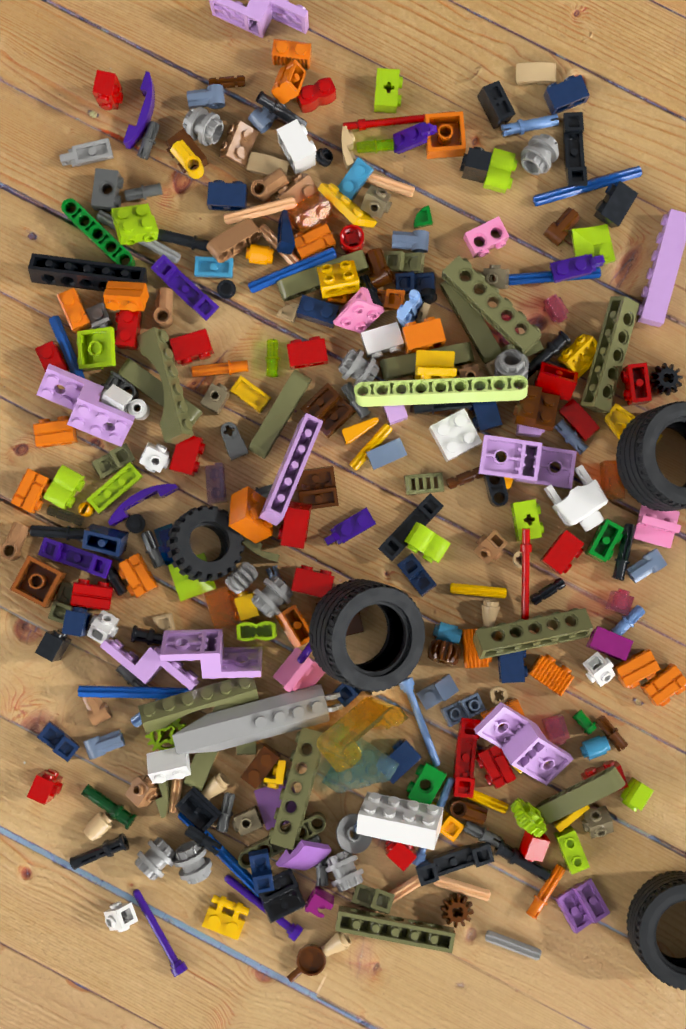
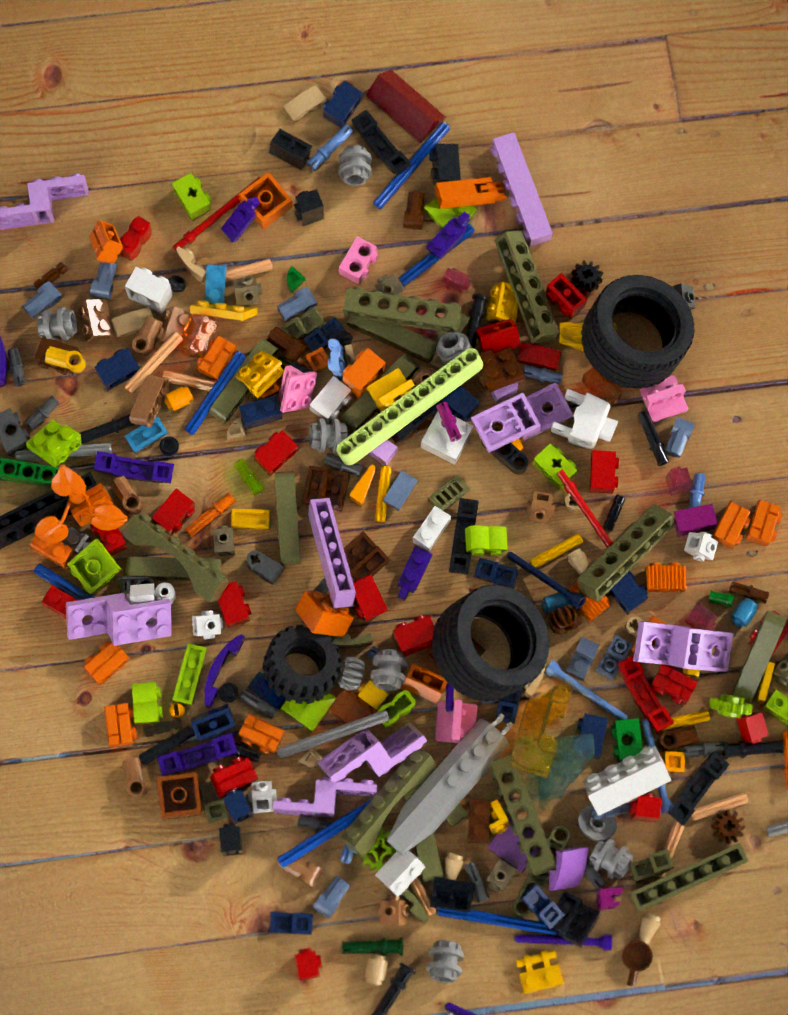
camera: 40 degrees left, 10 degrees down
(108, 266) = (69, 483): none -> orange plant
(113, 461) = (172, 653): olive slope -> none
(146, 636) = (305, 779): black pin -> none
(192, 616) = (333, 734): none -> light grey axle
(193, 865) = (481, 944): light grey piece -> none
(202, 839) = (474, 916): black axle -> none
(216, 483) = (274, 611): bracket -> none
(278, 109) = (111, 269): black axle -> none
(285, 236) = (189, 367): dark blue slope -> none
(286, 51) = (87, 217): orange brick -> none
(351, 239) = (247, 334): red wheel -> none
(375, 146) = (213, 247): clear neon green axle -> none
(389, 503) = (431, 529): none -> white brick
(463, 425) = (448, 421): none -> magenta pin
(464, 478) = (479, 467): reddish brown axle -> none
(464, 644) = (576, 599): none -> dark blue piece
(499, 171) = (332, 199): lime brick -> none
(604, 541) = (630, 439): green brick -> none
(614, 238) = (464, 192): none -> orange hinge
(617, 130) = (404, 105): none -> dark red slope

